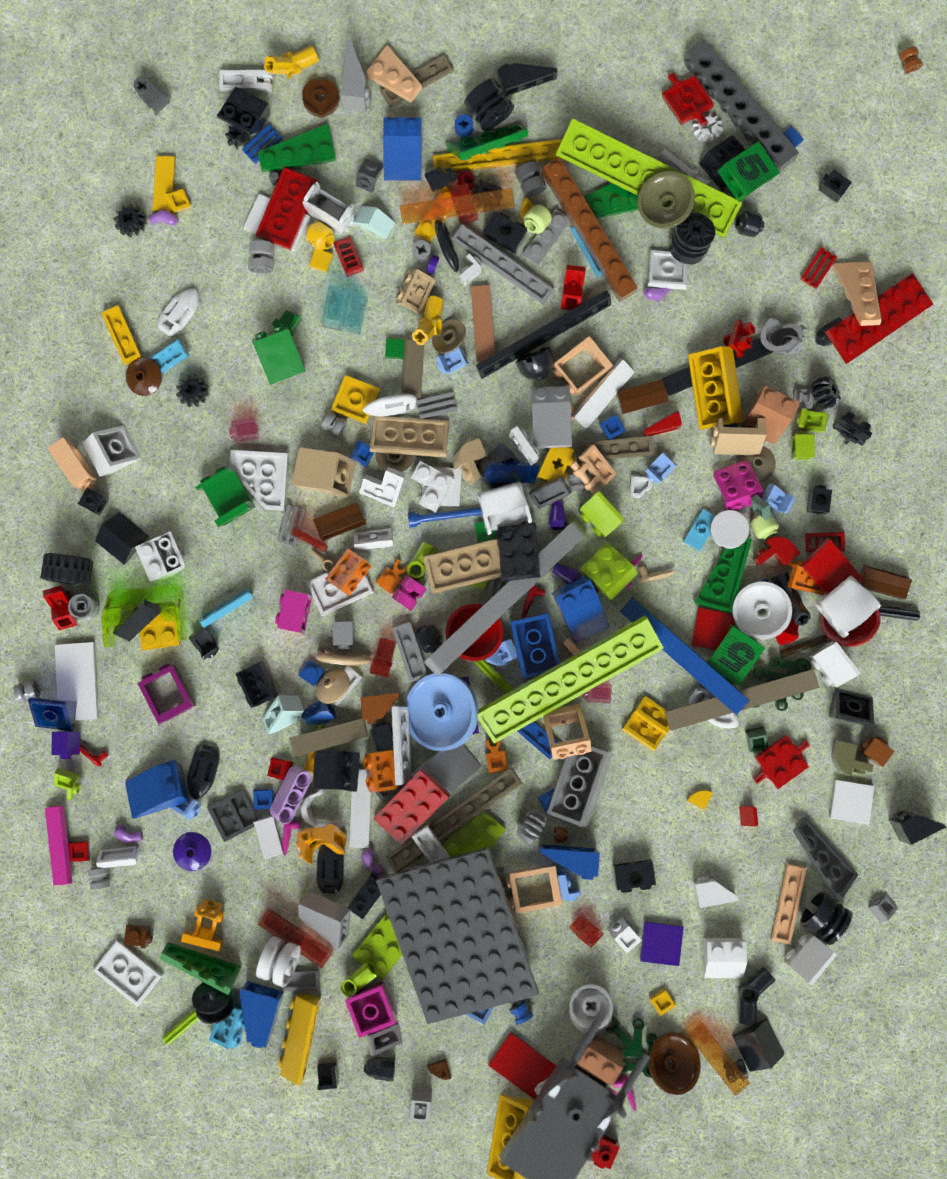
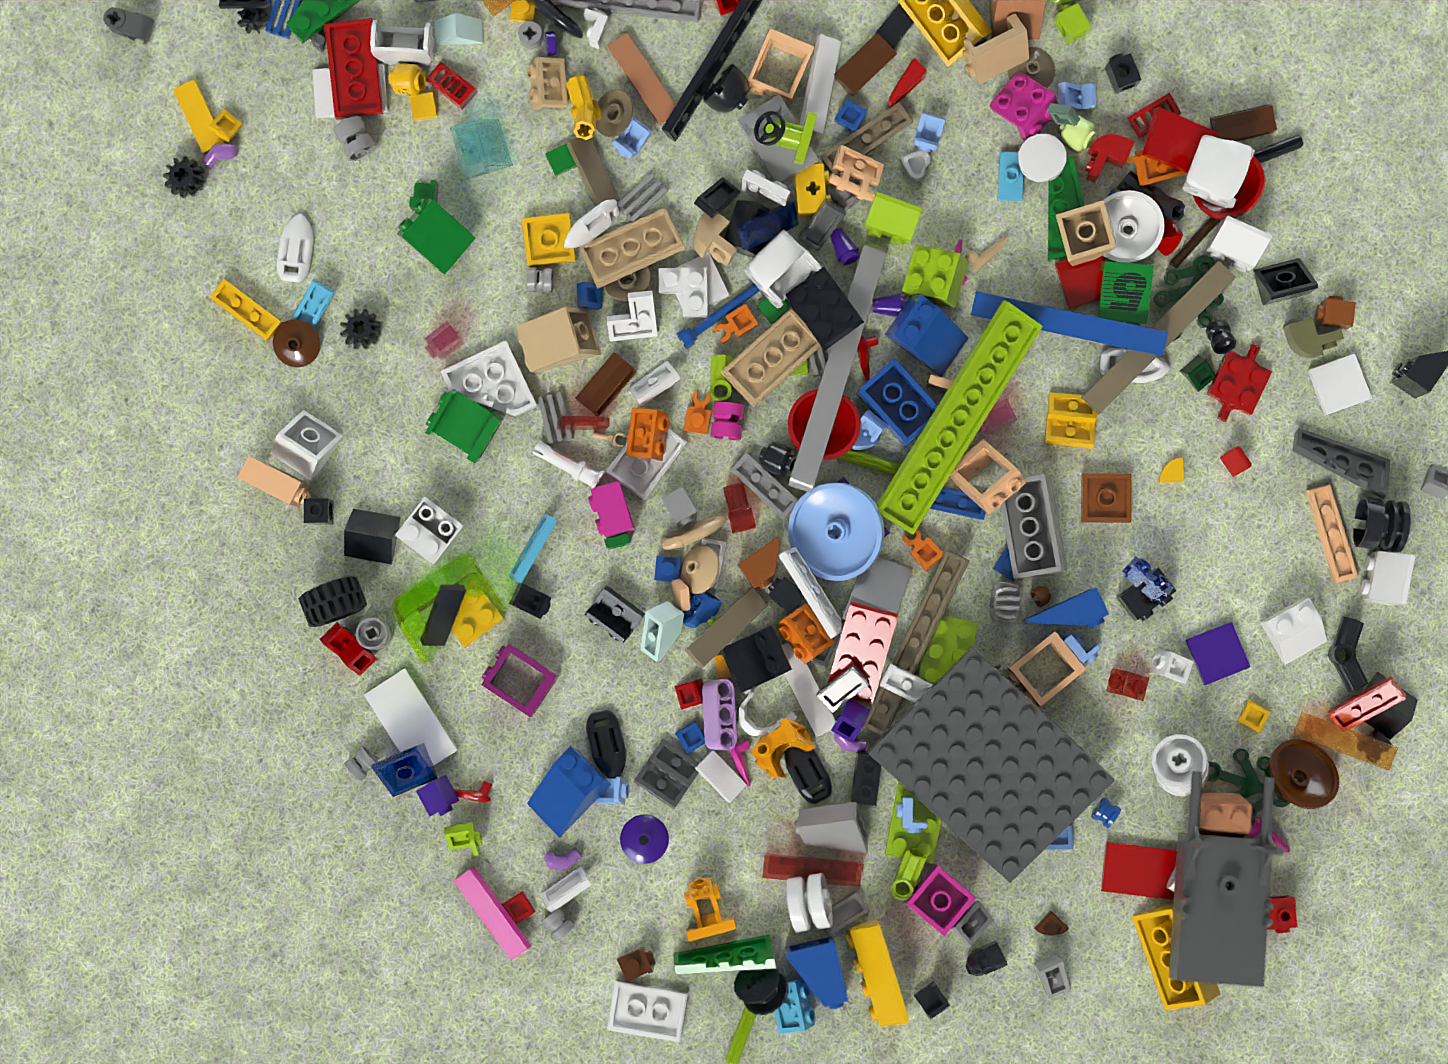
camera: 25 degrees left, 0 degrees up
(287, 635) = (617, 541): none -> green tile
(288, 570) = (578, 470): none -> white pin
(310, 696) = (681, 595): none -> light nougat tile
(378, 849) = (850, 720): none -> dark purple brick
(380, 934) = (905, 810): none -> light blue bracket
(385, 824) = (843, 688): none -> tile
(456, 528) = (739, 322): none -> orange plate
(487, 433) = (717, 197): none -> black tile
(558, 416) = (787, 134): none -> lime piece
(643, 791) = (1105, 498): none -> dark orange plate
(643, 874) = (1157, 585): none -> clear blue hinge
(711, 893) = (1242, 567): white slope -> none
(731, 599) = (1086, 232): none -> tan slope
(746, 1039) = (1367, 704): none -> tile
(786, 721) = (1221, 337): none -> black wheel

